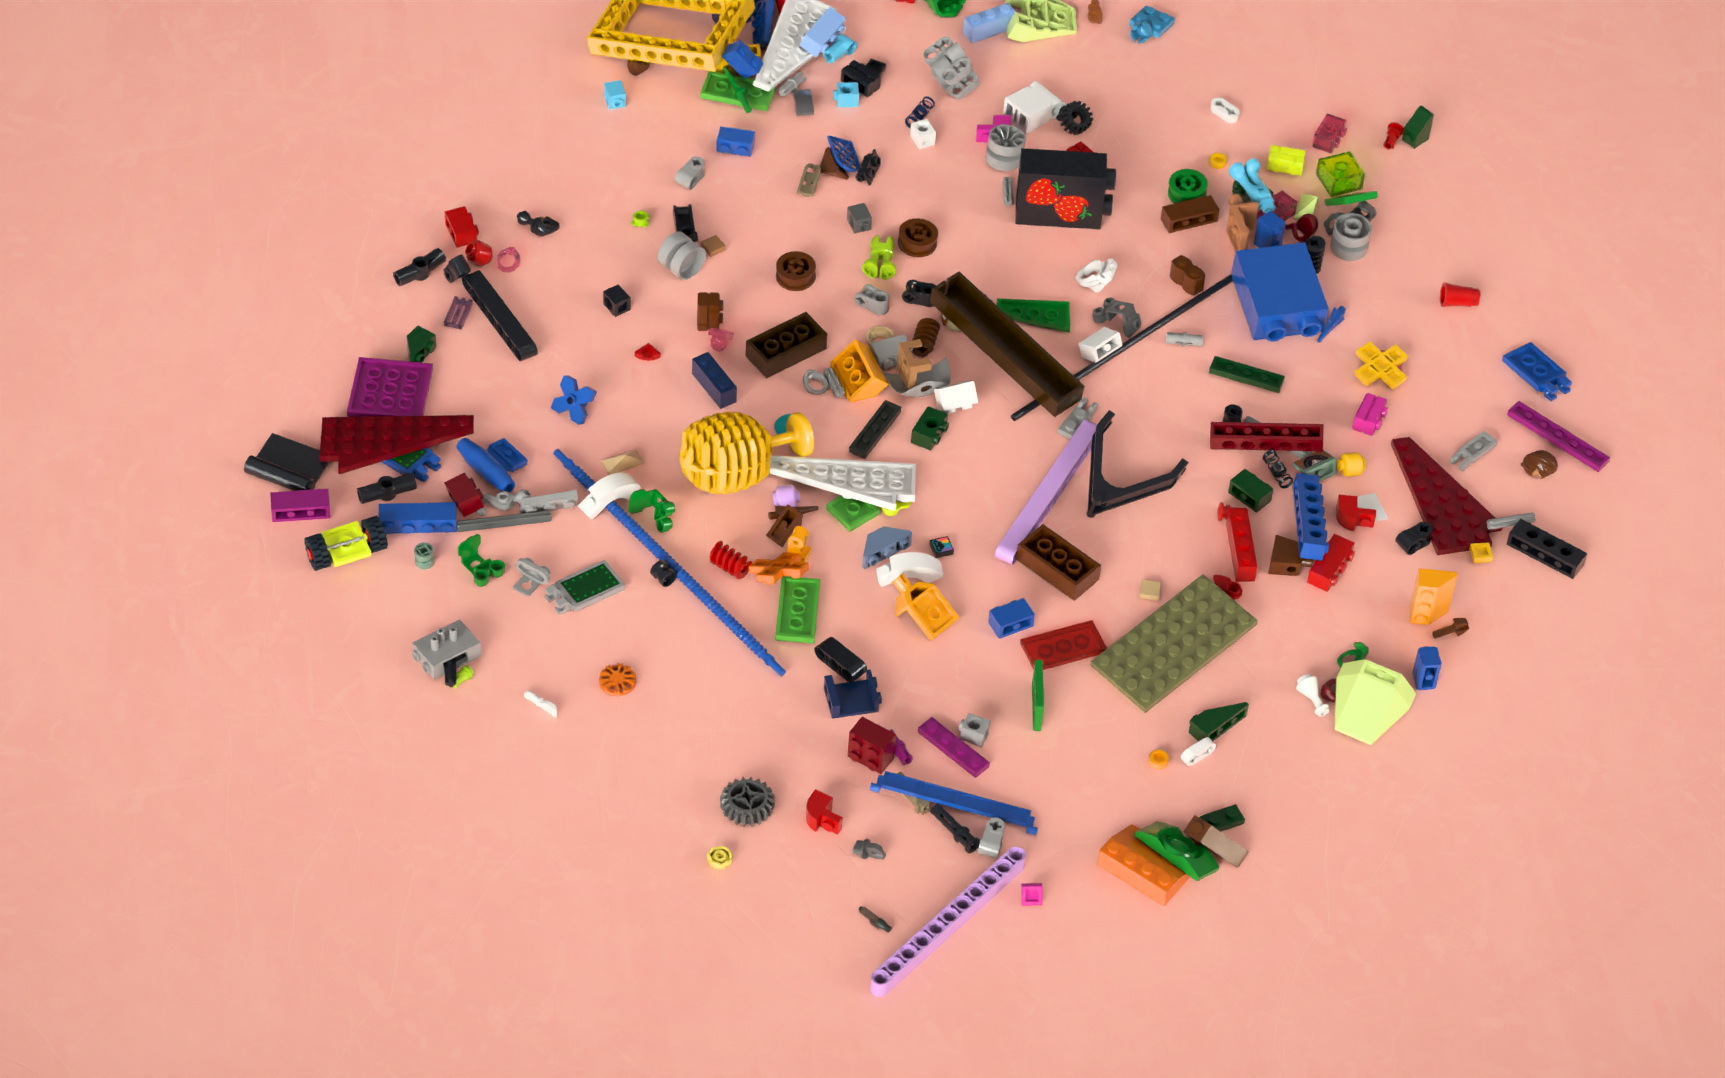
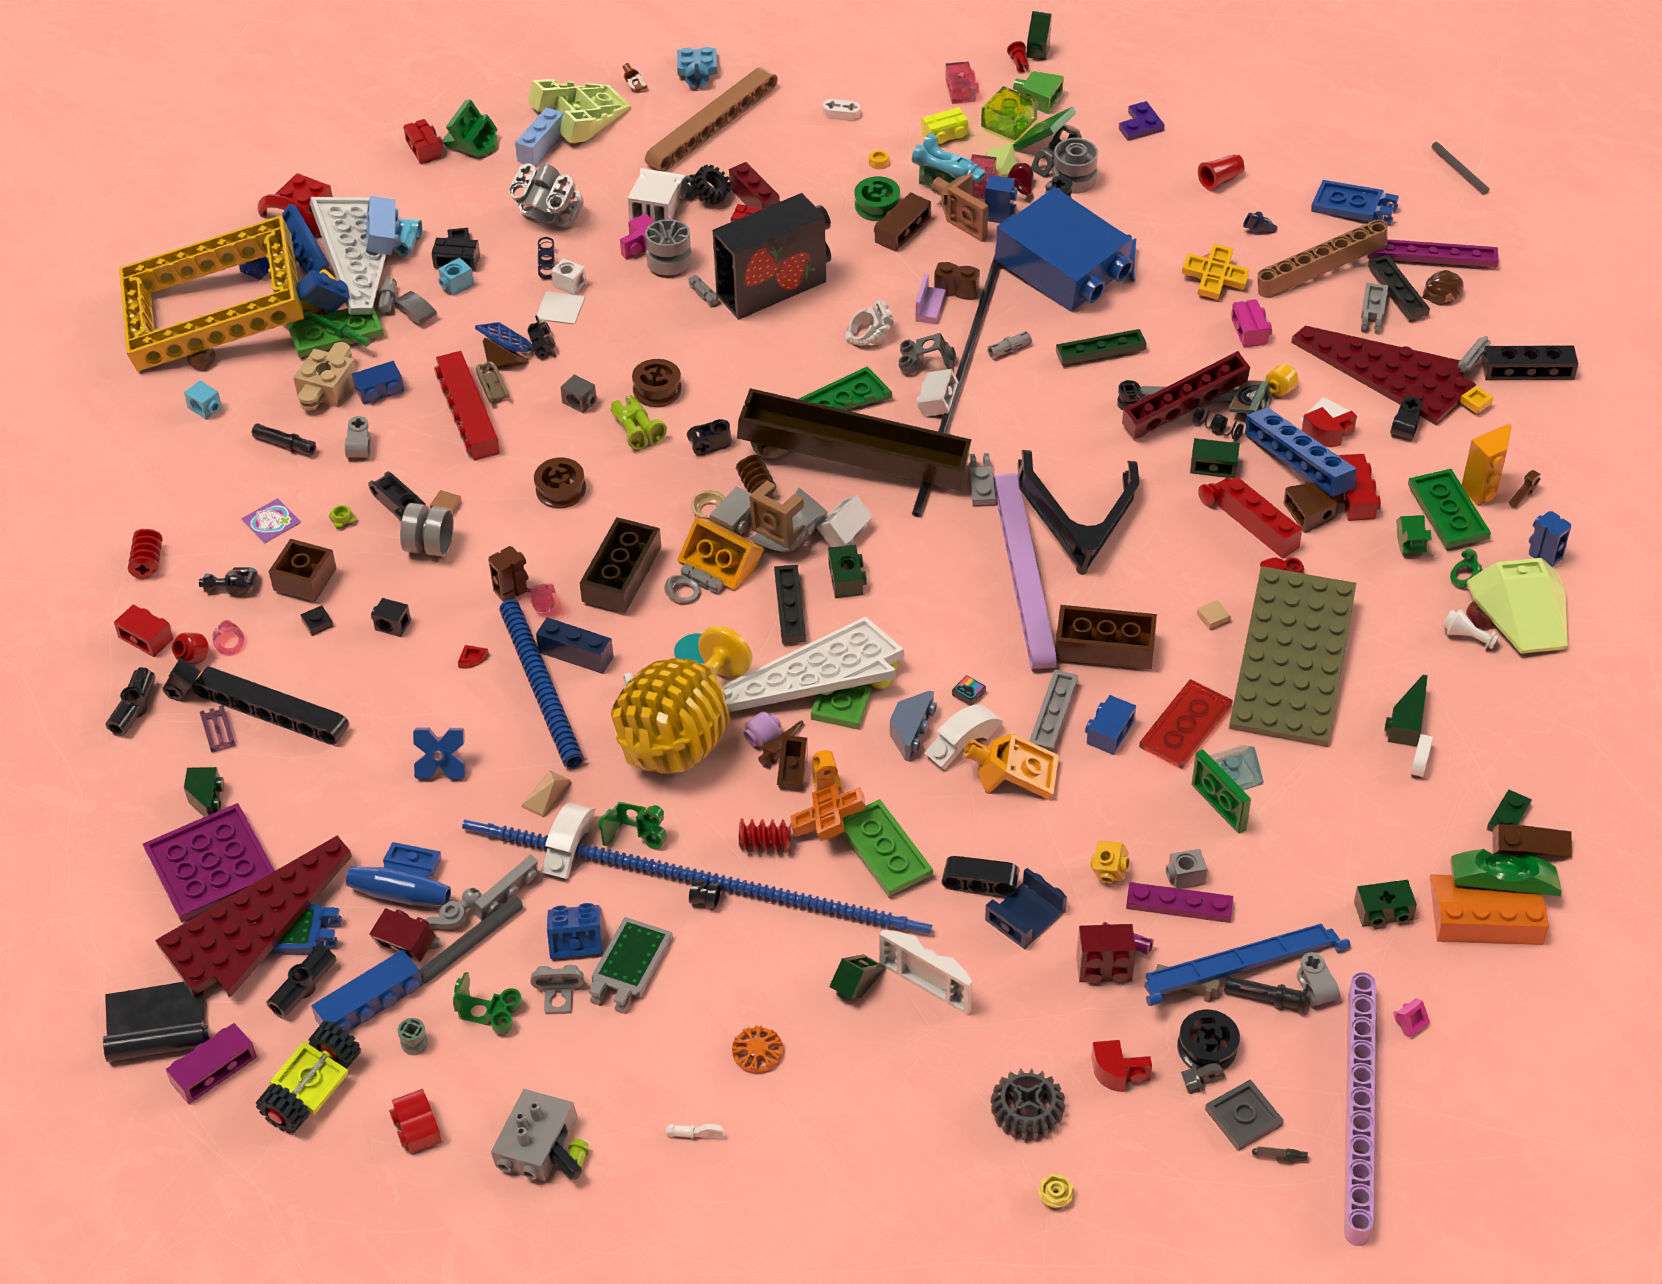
camera: 30 degrees left, 0 degrees up
(387, 603) = (416, 1121): none -> red brick
(499, 177) = (145, 553): none -> red piece
(567, 550) = (574, 931): none -> blue bracket
(571, 278) = (316, 620): none -> black plate
(585, 240) = (302, 570): none -> reddish brown brick
(596, 198) = (271, 520): none -> sticker
(649, 152) = (292, 441): none -> black pin
(674, 392) = (541, 684): none -> blue piece
(703, 119) = (325, 377): none -> tan brick
(711, 671) = (855, 976): none -> dark green slope
(752, 689) = (926, 969): none -> slope
(779, 187) = (466, 405): none -> red brick
(874, 299) = (669, 469): light grey piece -> none
(874, 885) = (1244, 1114): none -> dark grey tile
(900, 828) = (1211, 1029): none -> black wheel
(901, 152) = (560, 307): none -> white sticker
(928, 696) = (1110, 861): none -> yellow brick
(982, 589) = (1054, 709): none -> light grey plate
(1064, 690) = (1241, 765): none -> clear light blue slope
(1081, 821) = (1385, 903): none -> dark green brick
(1104, 135) = (751, 187): none -> dark red brick
(1123, 70) = (711, 119): none -> medium nougat beam
(1155, 279) = (929, 302): none -> lavender panel
(1158, 759) = (1389, 788): light orange tile -> none
(1336, 614) = (1412, 534): none -> green brick
(1383, 169) = (1043, 87): none -> bright green torso
(1383, 612) = (1449, 508): none -> green plate
(1439, 234) = (1144, 122): none -> dark purple plate
(1448, 347) = (1258, 222): none -> piece
(1466, 396) = (1322, 258): none -> medium nougat beam
(1506, 447) = (1399, 287): none -> pearl dark grey plate
(1648, 387) = (1460, 168): none -> dark grey bar

